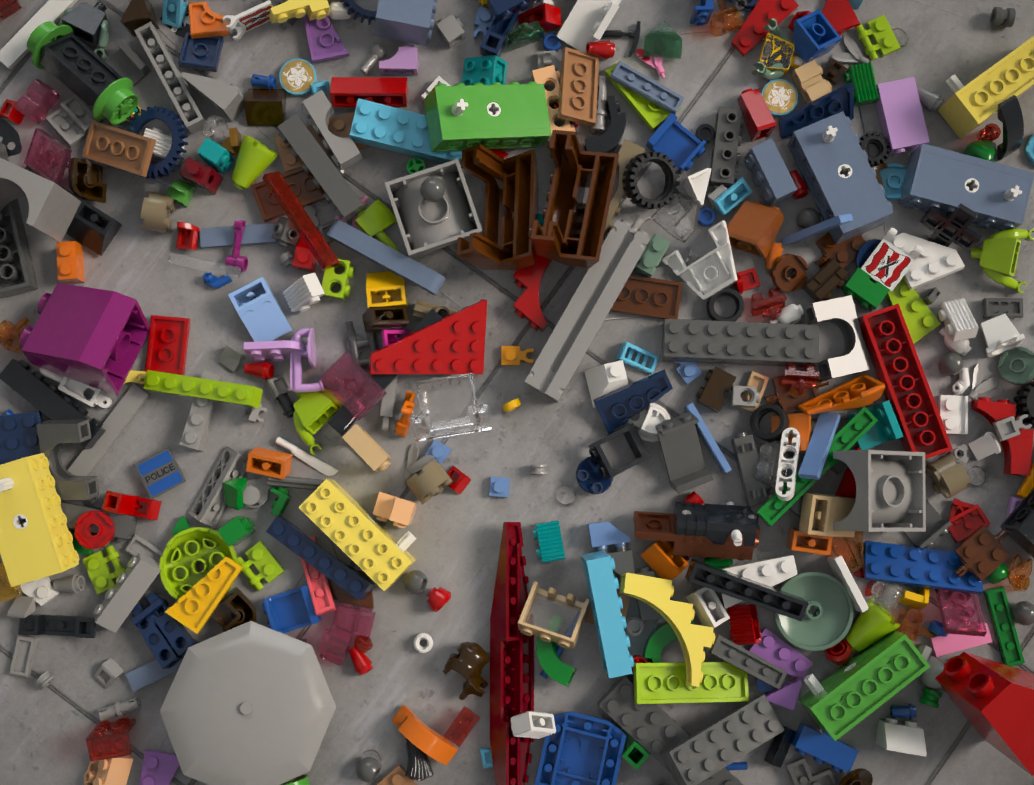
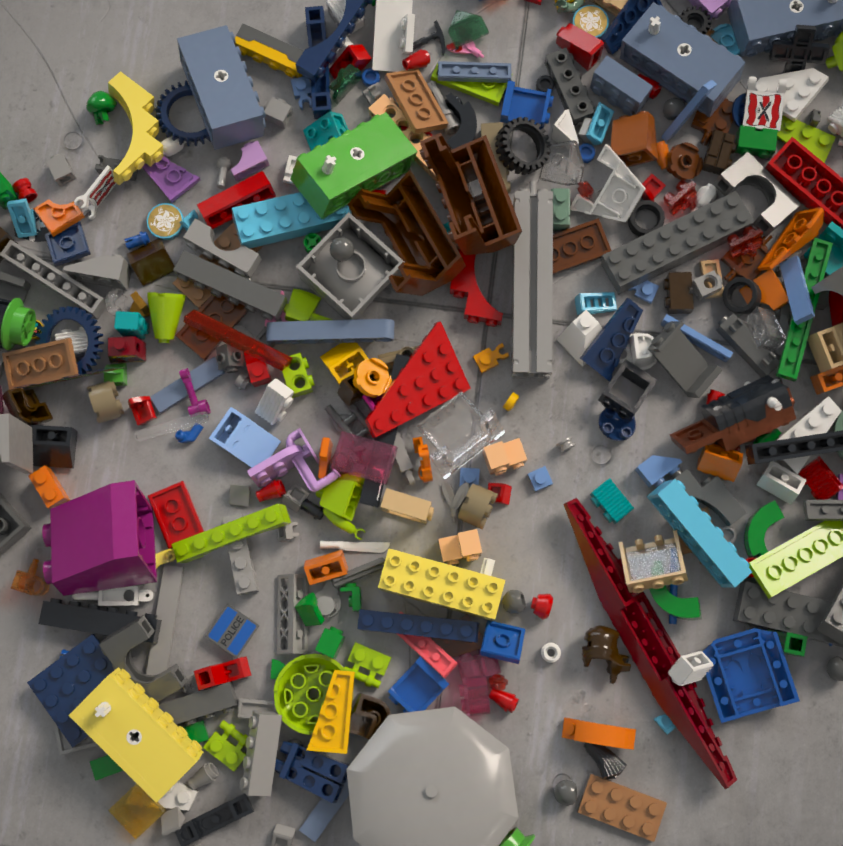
camera: 25 degrees left, 5 degrees down
(105, 526) = (212, 708): red tile -> none
(320, 365) = (325, 456): none -> orange tile
(385, 611) = (502, 642): none -> blue tile
(387, 318) = (365, 384): none -> light orange plate
(461, 726) = (627, 706): clear red hips -> none
(479, 450) = (504, 456): none -> light nougat brick
(684, 250) = (585, 189): none -> clear red plate
(692, 638) = (785, 514): light yellow arch -> none
(787, 464) = (779, 319): white beam -> none

